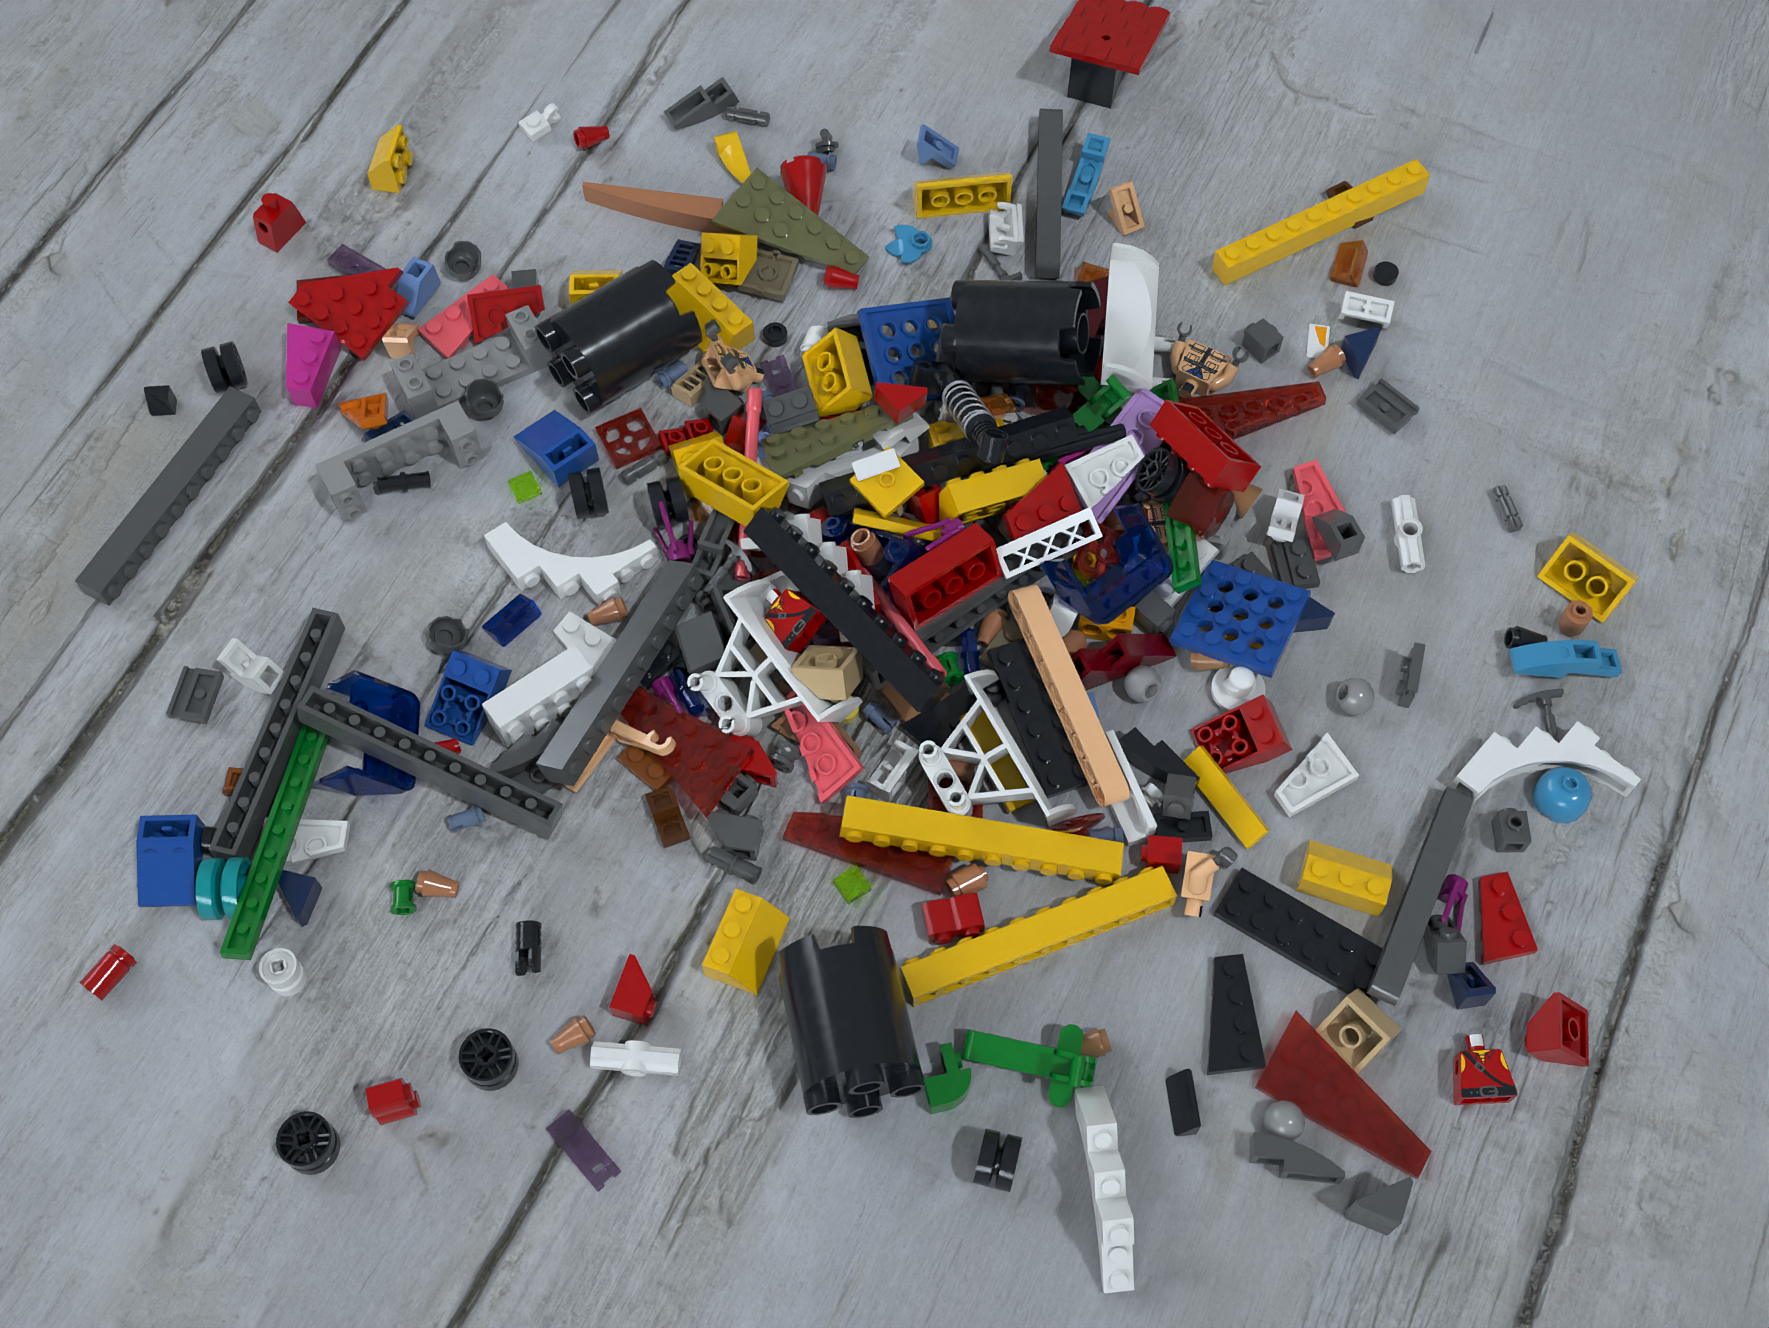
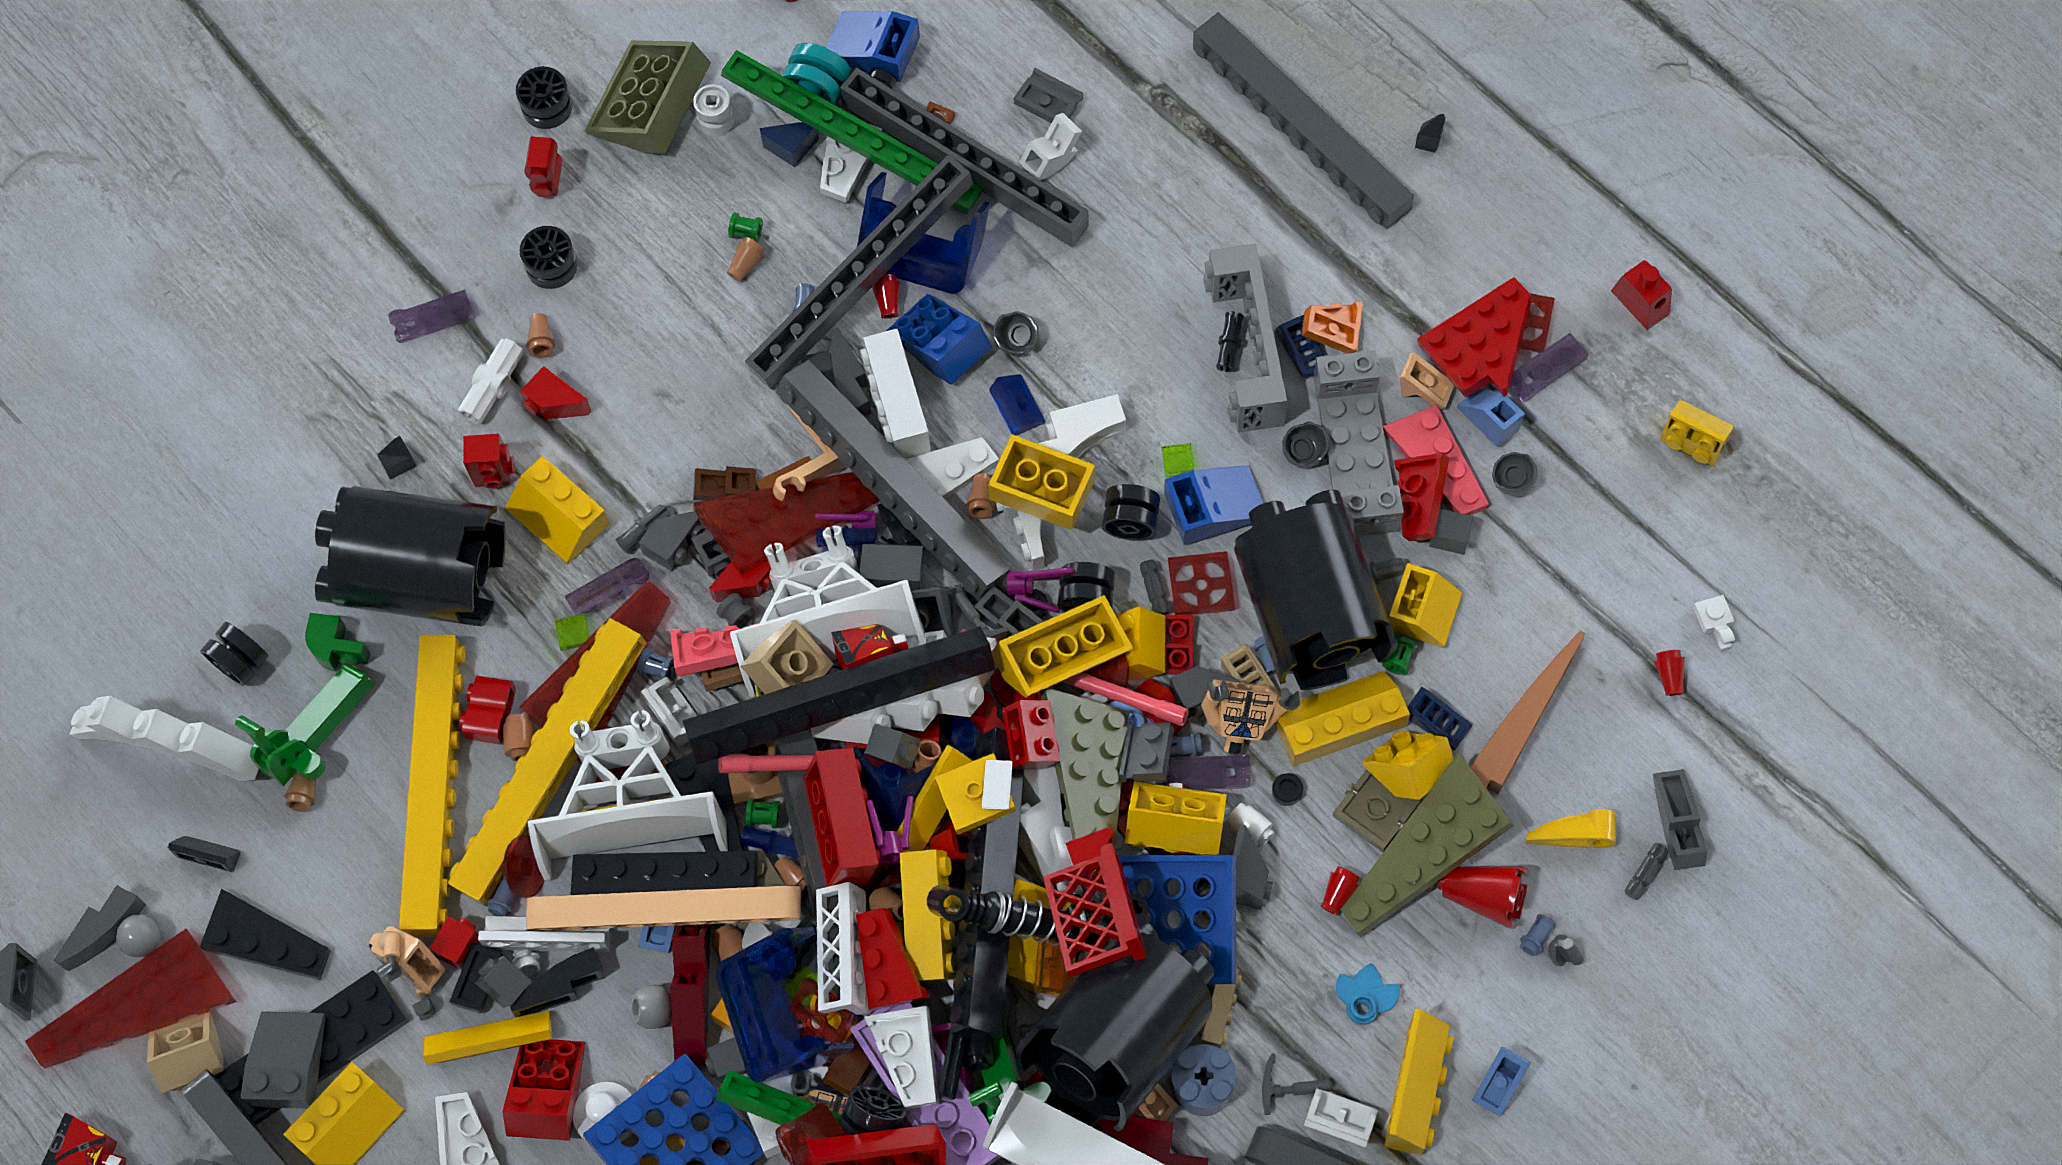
camera: 115 degrees right, 5 degrees up
(224, 367) = (1445, 196): black wheel -> none
(278, 1046) = (649, 95): none -> olive slope
(309, 363) = (1424, 281): dark pink wedge -> none
(528, 947) = (644, 321): black hinge -> none
(590, 548) = (1041, 482): none -> yellow brick
(723, 1013) = (487, 460): none -> red brick
(744, 1113) = (396, 458): none -> black slope
(801, 868) = (607, 586): none -> clear purple plate
(818, 470) = (1031, 734): none -> red brick
(870, 556) = (892, 746): none -> dark grey brick
(937, 341) = (1121, 910): none -> red fence
(995, 526) = (887, 898): none -> medium nougat cone
(1326, 935) = (284, 1060): none -> dark grey slope

